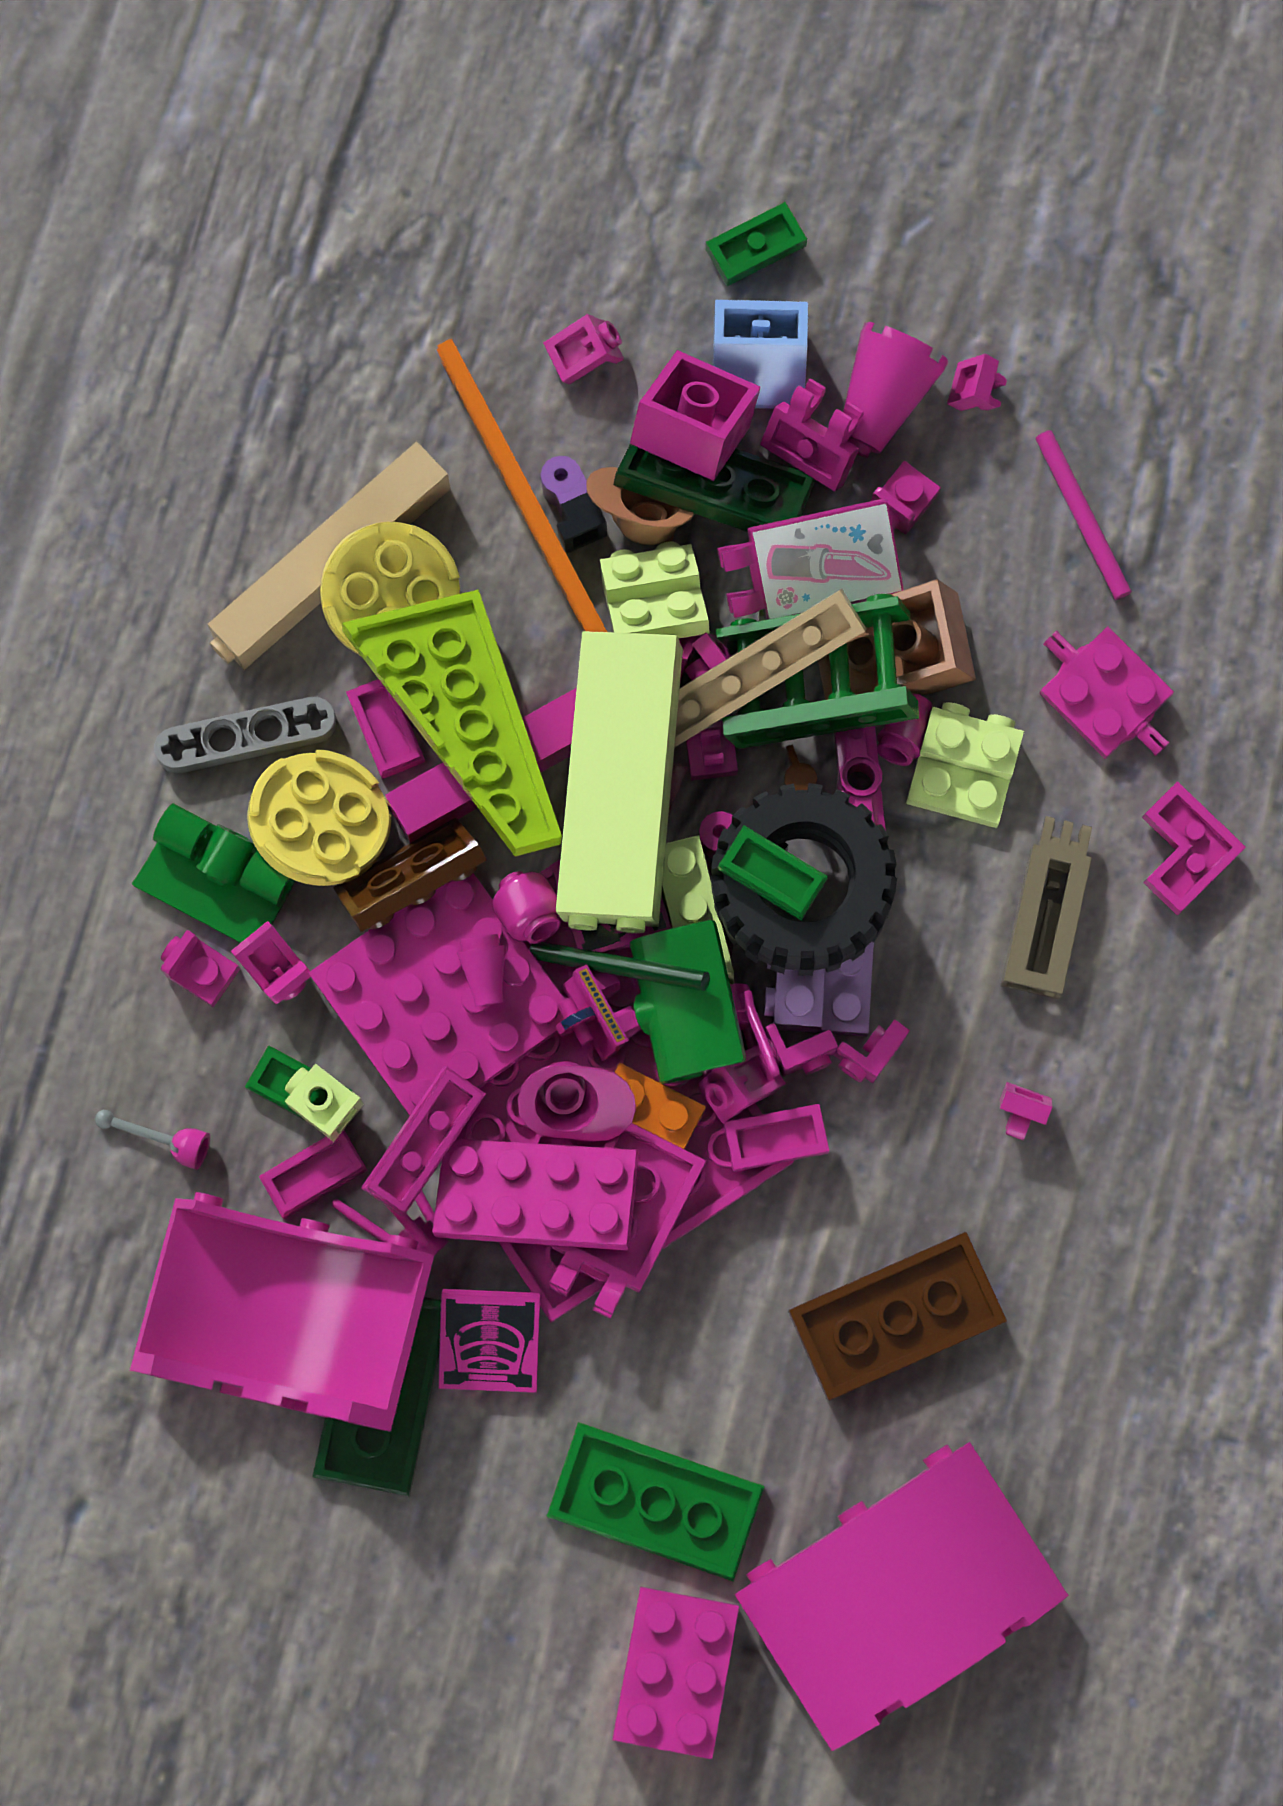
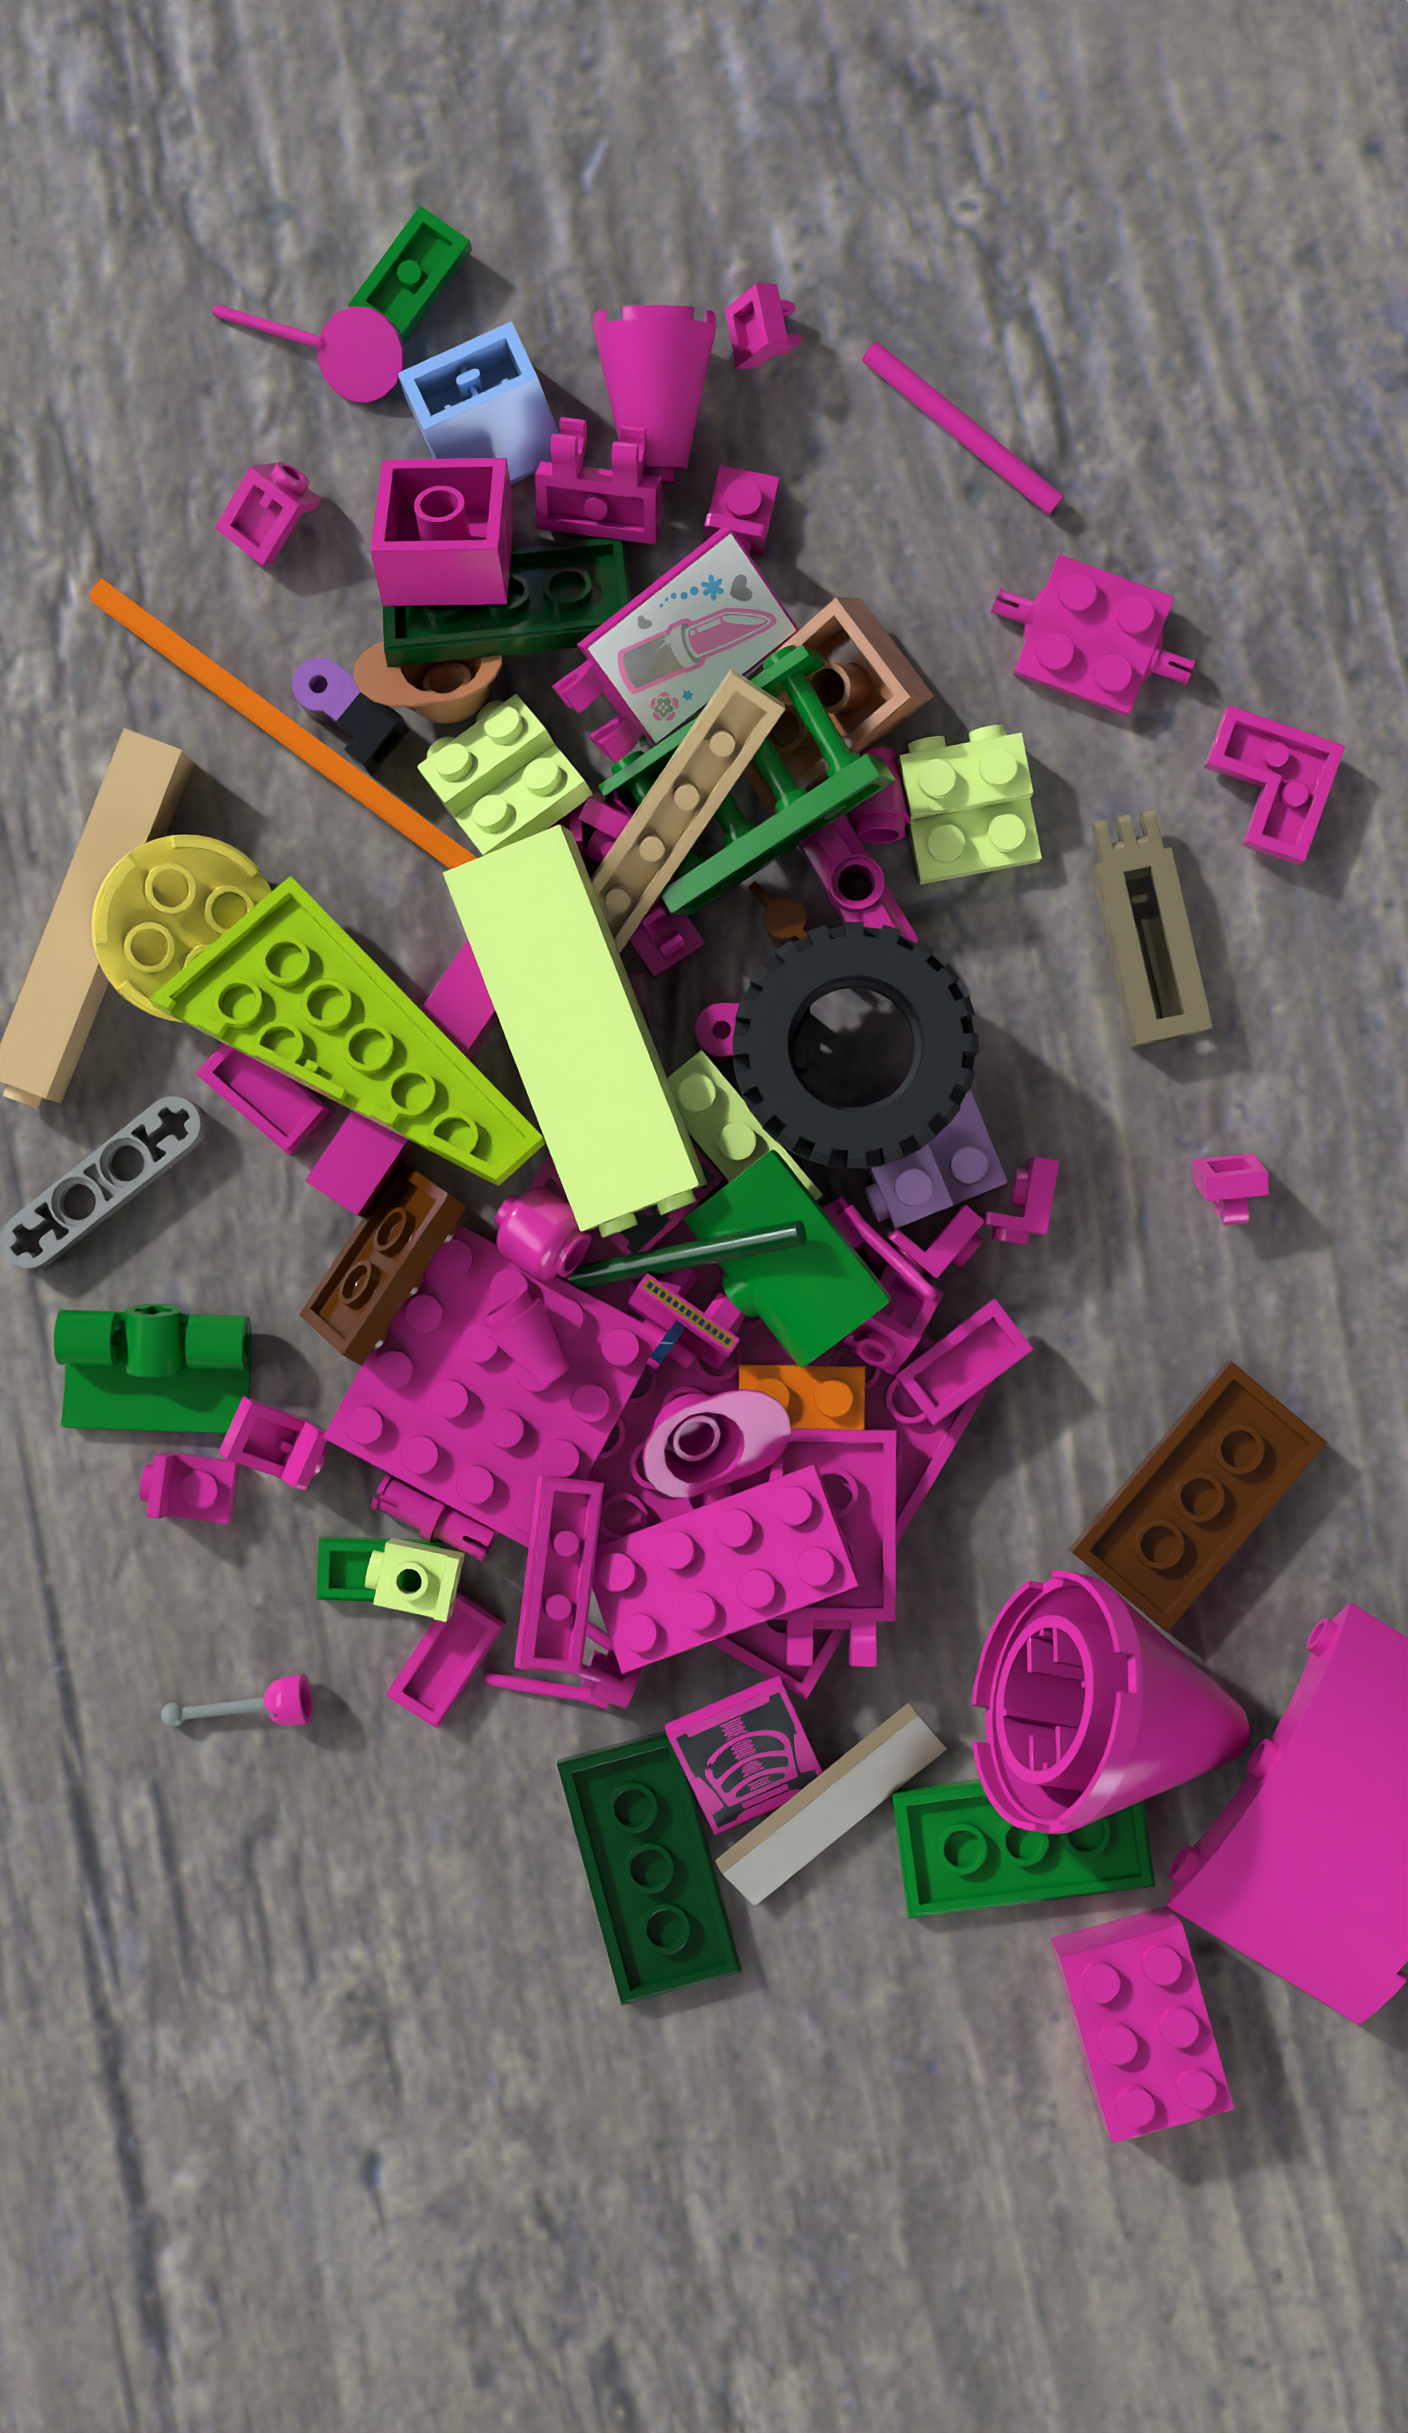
camera: 25 degrees left, 10 degrees up
(283, 1312) = (496, 1845): dark pink panel -> none
(318, 818) = (240, 1243): light yellow tile -> none
(355, 1070) = (433, 1517): none -> dark pink pin
(531, 1406) = (830, 1805): none -> tile
(695, 273) = (356, 349): none -> dark pink piece
(754, 1420) = (1091, 1708): none -> dark pink cone
(772, 872) = (820, 1064): green tile -> none

